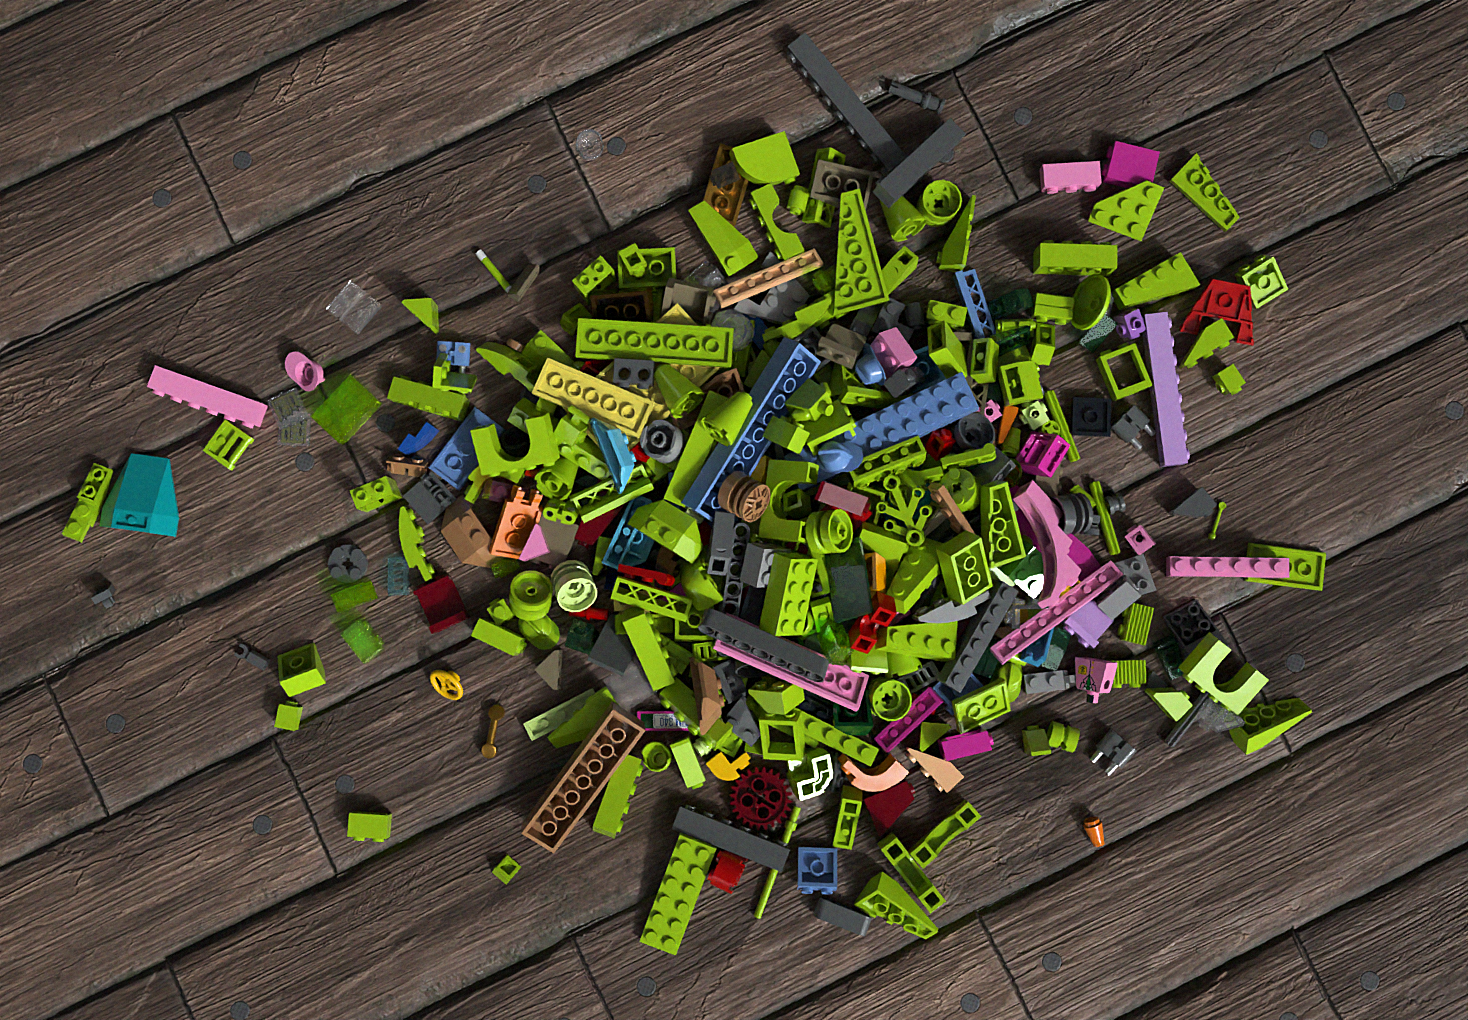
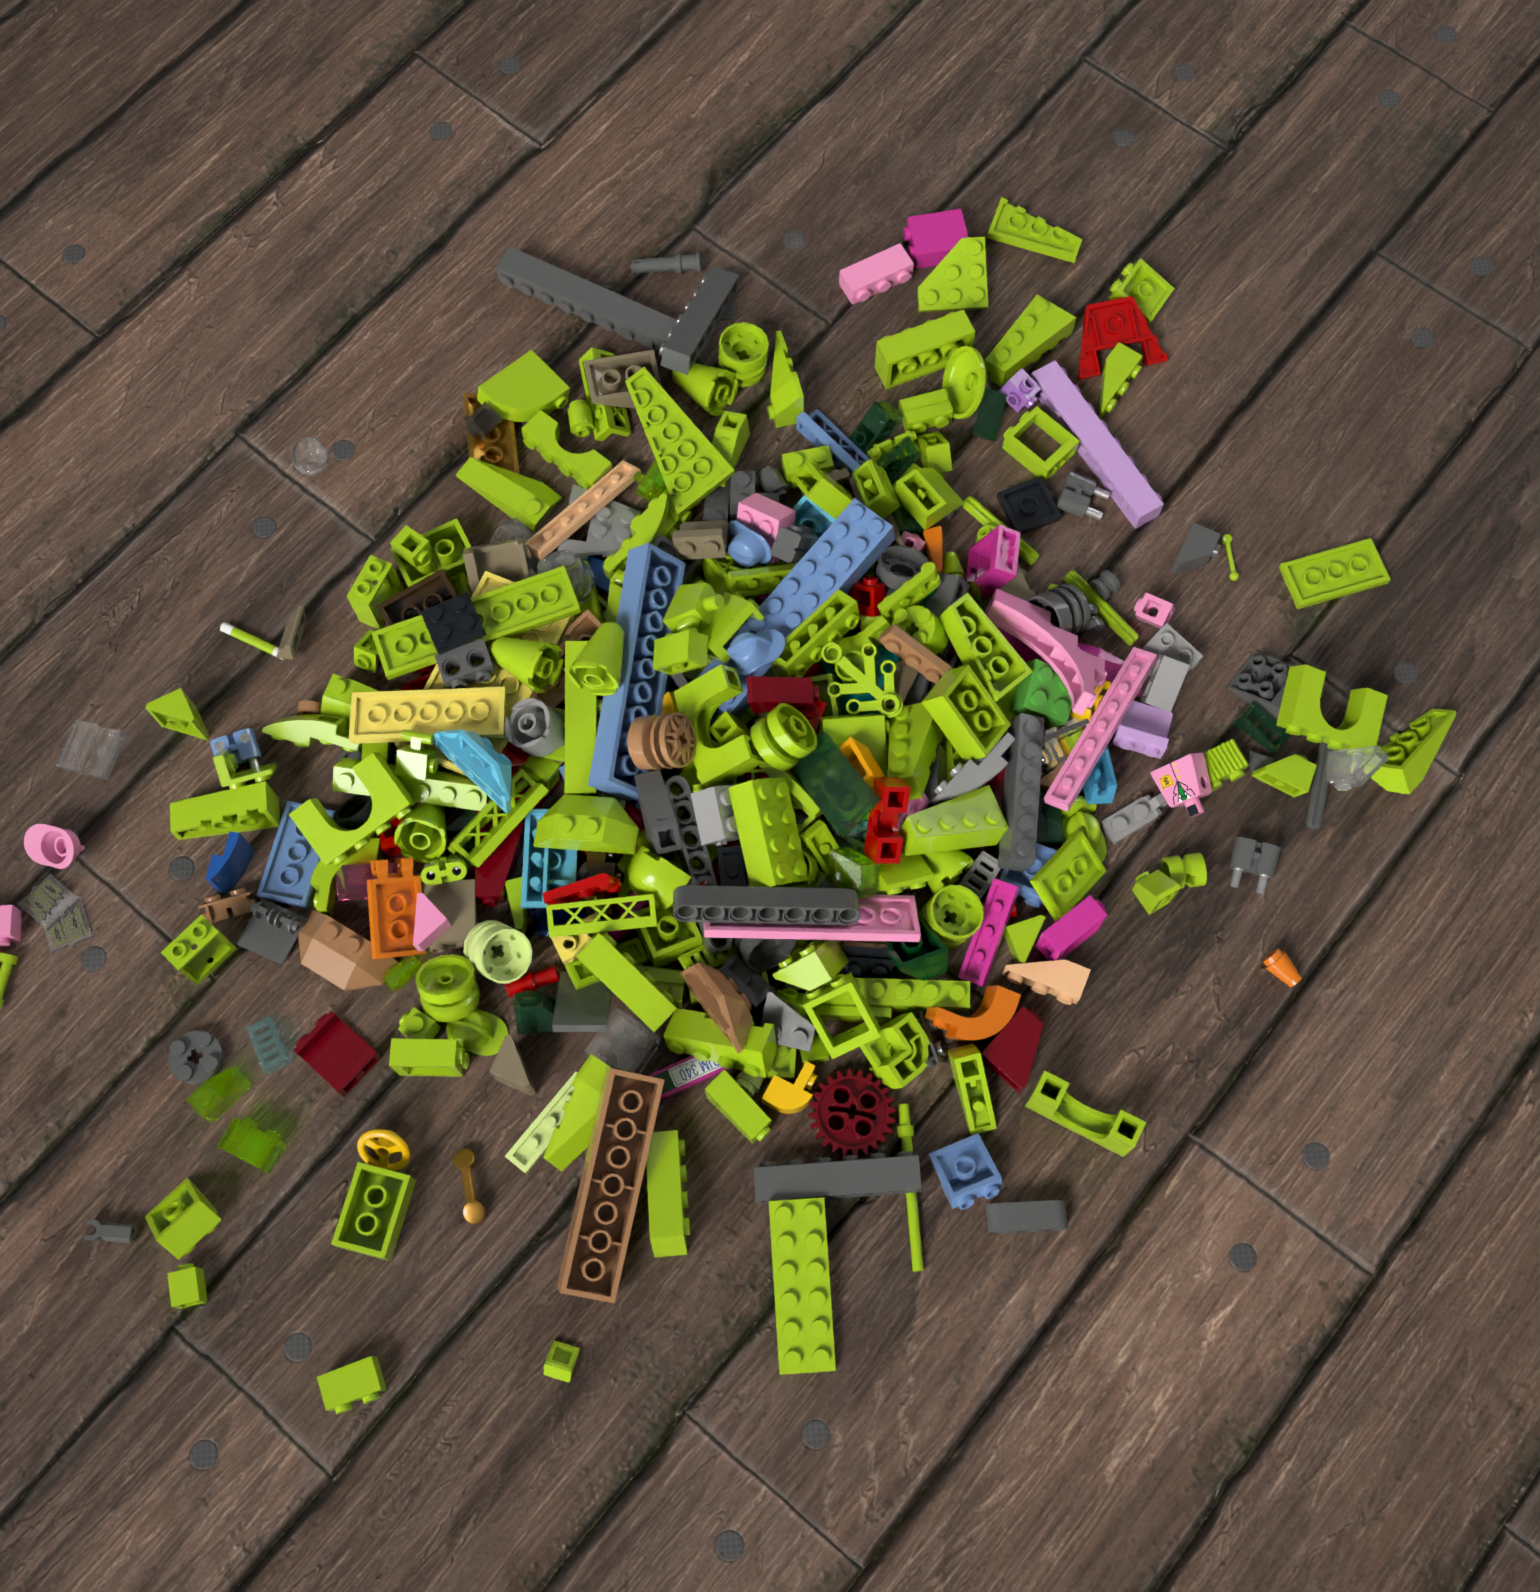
camera: 20 degrees left, 15 degrees down
(346, 410) = (124, 869): clear neon green brick -> none
(410, 537) = (270, 993): lime slope -> none
(424, 723) = (374, 1211): none -> lime brick
(637, 340) = (453, 623): none -> black plate
(656, 756) = (695, 1119): lime hair -> none
(727, 871) = (852, 1223): red brick -> none
(890, 901) = (1079, 1171): lime wedge -> none
(933, 842) = (1101, 1051): lime arch -> none
(1039, 416) = (961, 527): yellowish green brick -> none
(1056, 649) = (1125, 775): clear green slope -> none
(1135, 624) = (1200, 706): lime brick -> none
(1227, 567) = (1302, 581): bright pink arch -> none
(1229, 380) = (1161, 404): lime brick -> none

